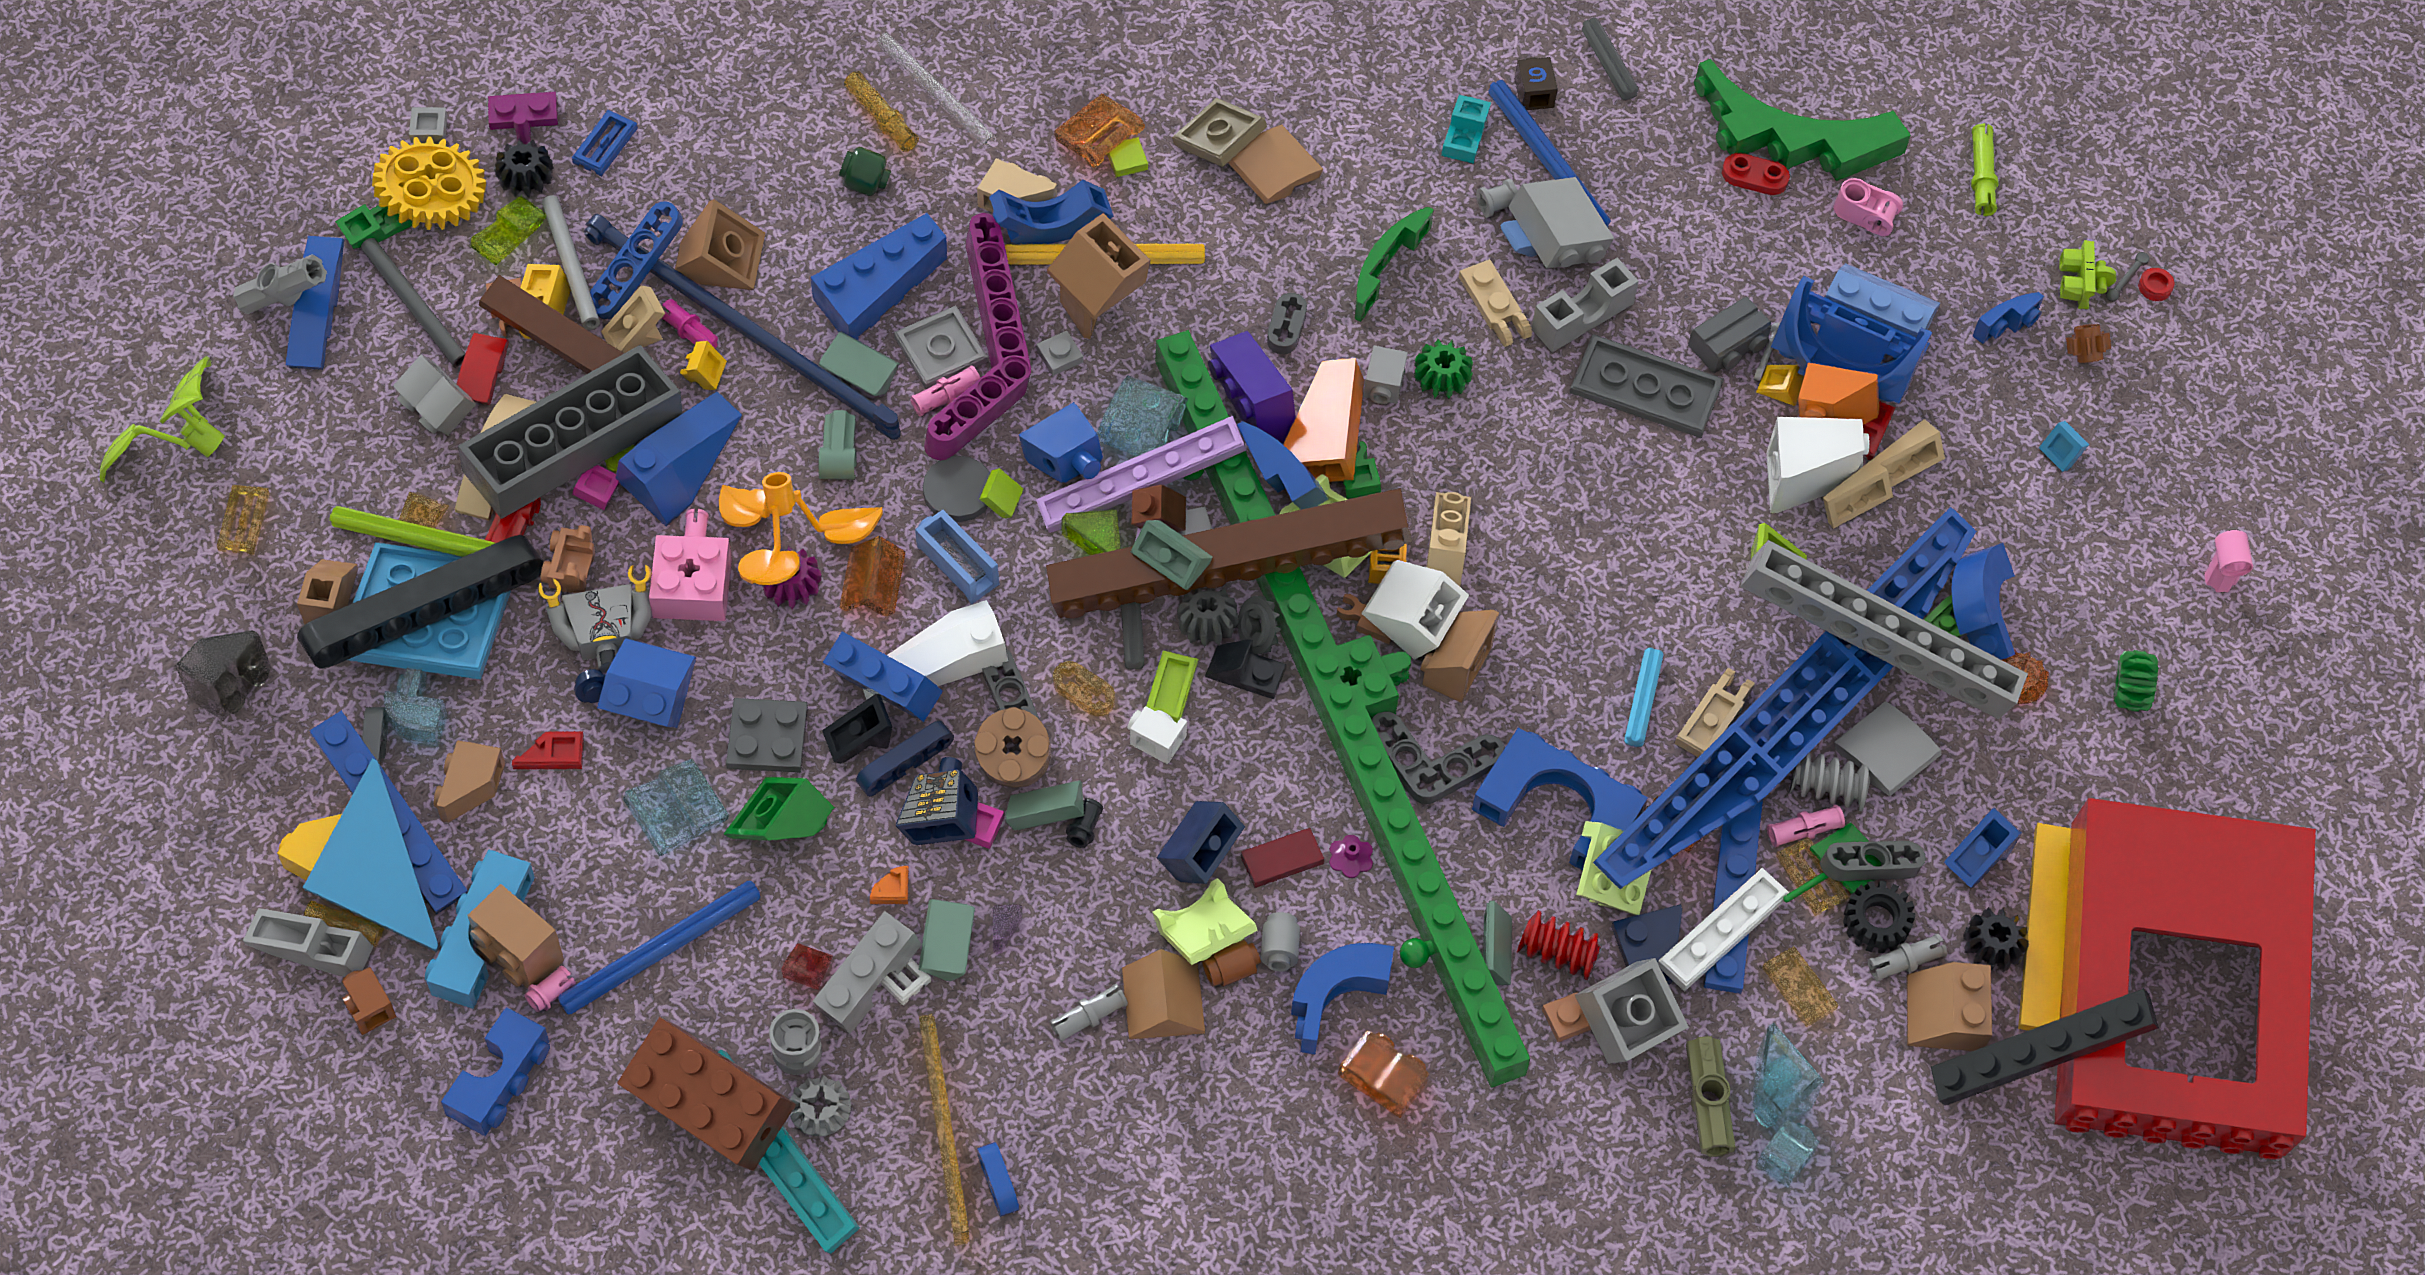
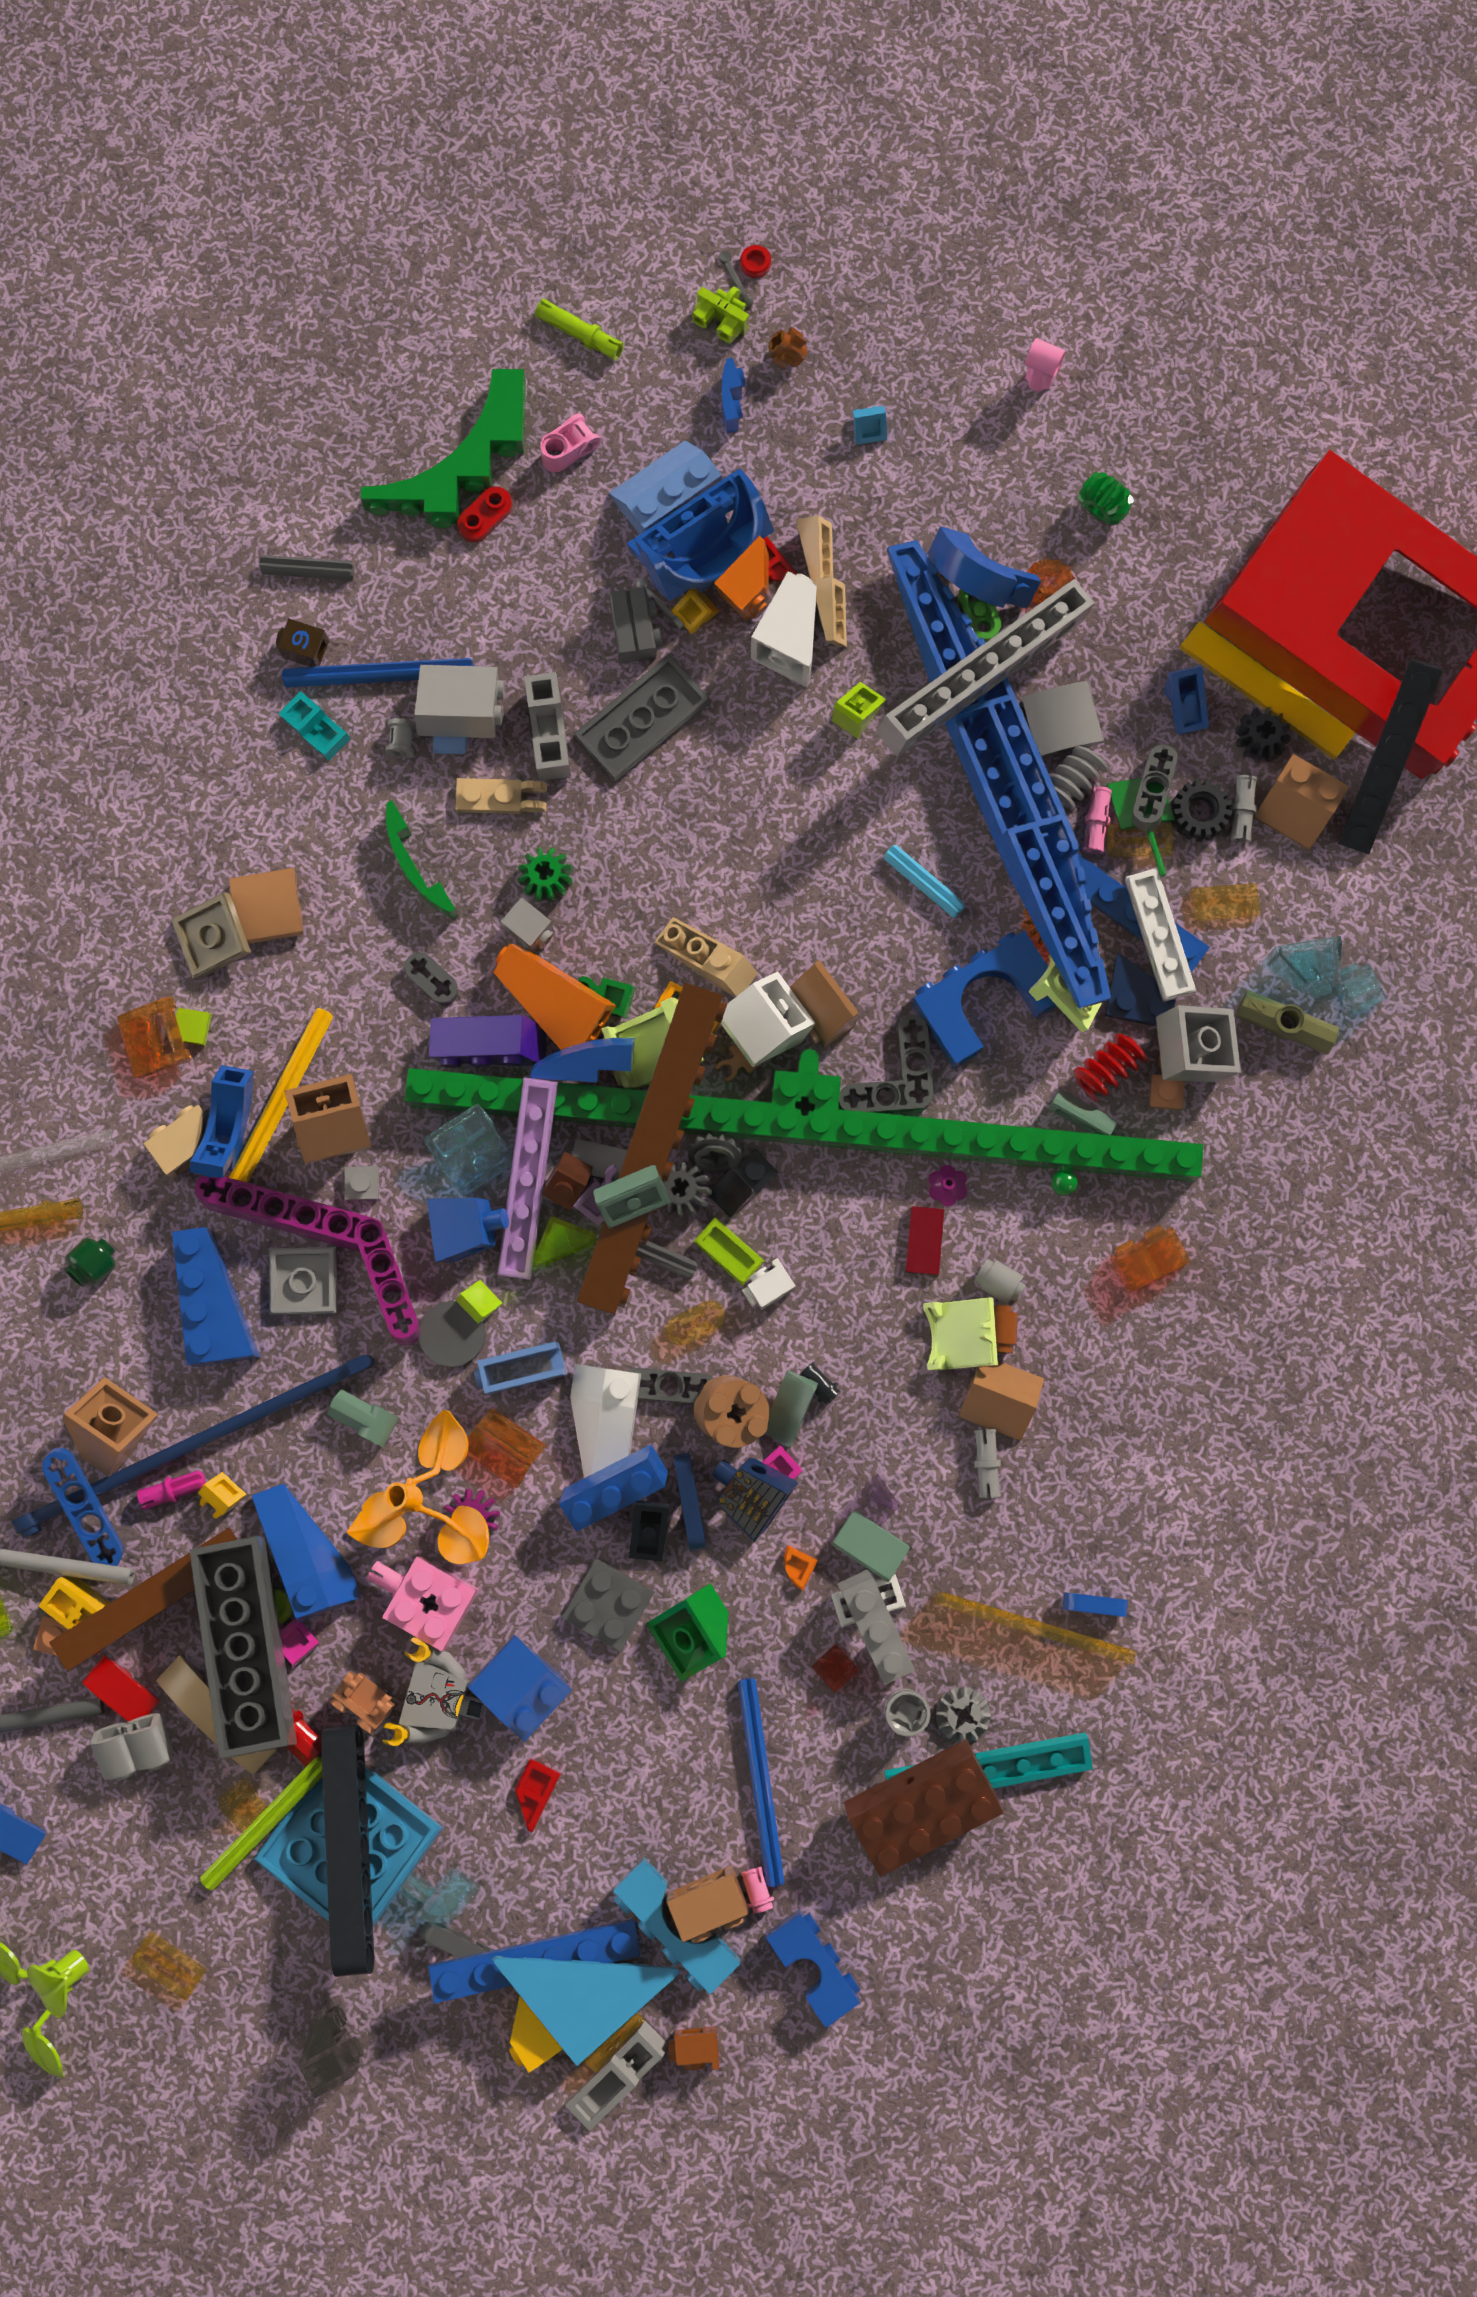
camera: 60 degrees left, 20 degrees up
(326, 588) = (285, 1922): medium nougat slope -> none
(470, 779) = (530, 1874): medium nougat slope -> none
(589, 685) = (492, 1733): dark blue plate -> none
(635, 322) = (147, 1537): tan slope -> none
(675, 807) = (638, 1711): clear light blue slope -> none
(859, 364) = (289, 1361): sand green slope -> none
(944, 391) = (352, 1320): bright pink pin -> none
(1200, 842) = (888, 1301): dark blue brick -> none
(1339, 971) = (1051, 1261): blue arch -> none
(1713, 714) = (969, 836): tan hinge -> none

